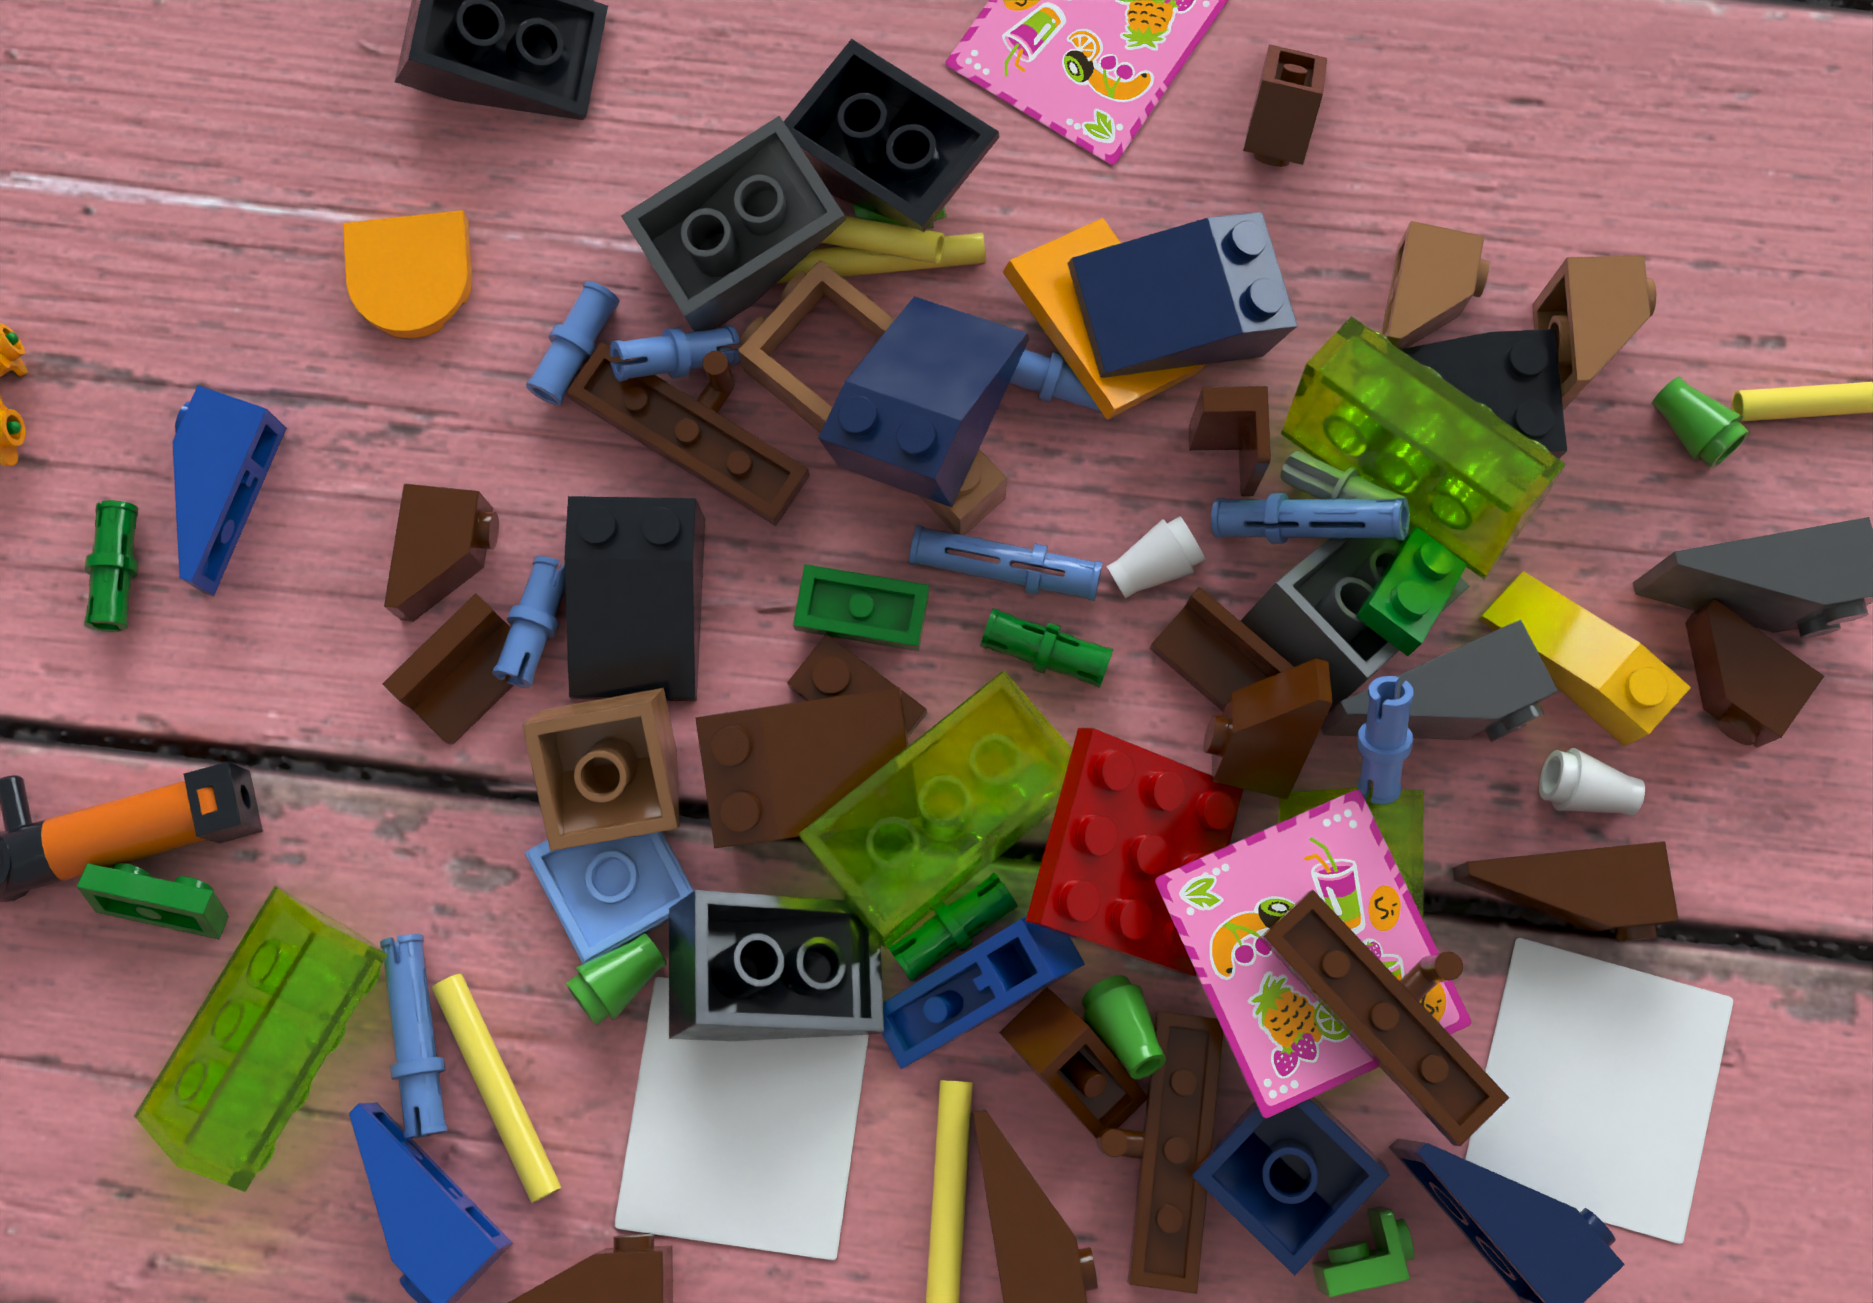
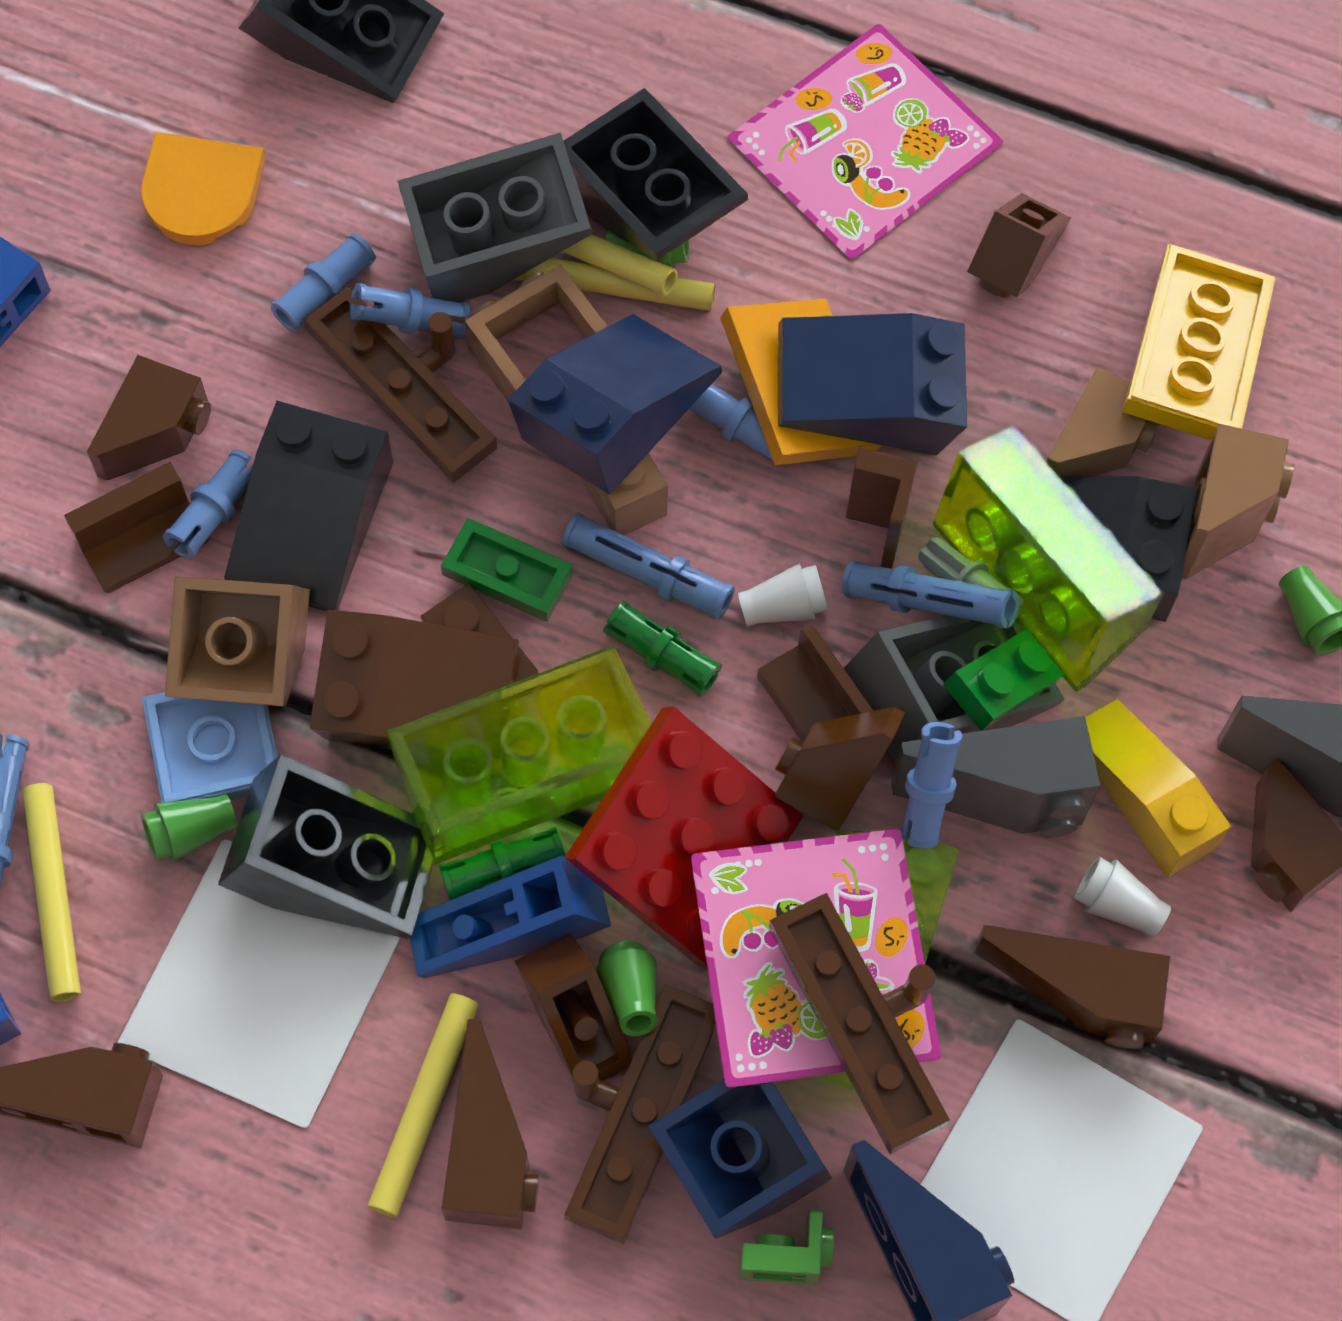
camera: 10 degrees right, 10 degrees down
(1506, 166) = (1199, 343): none -> yellow tile

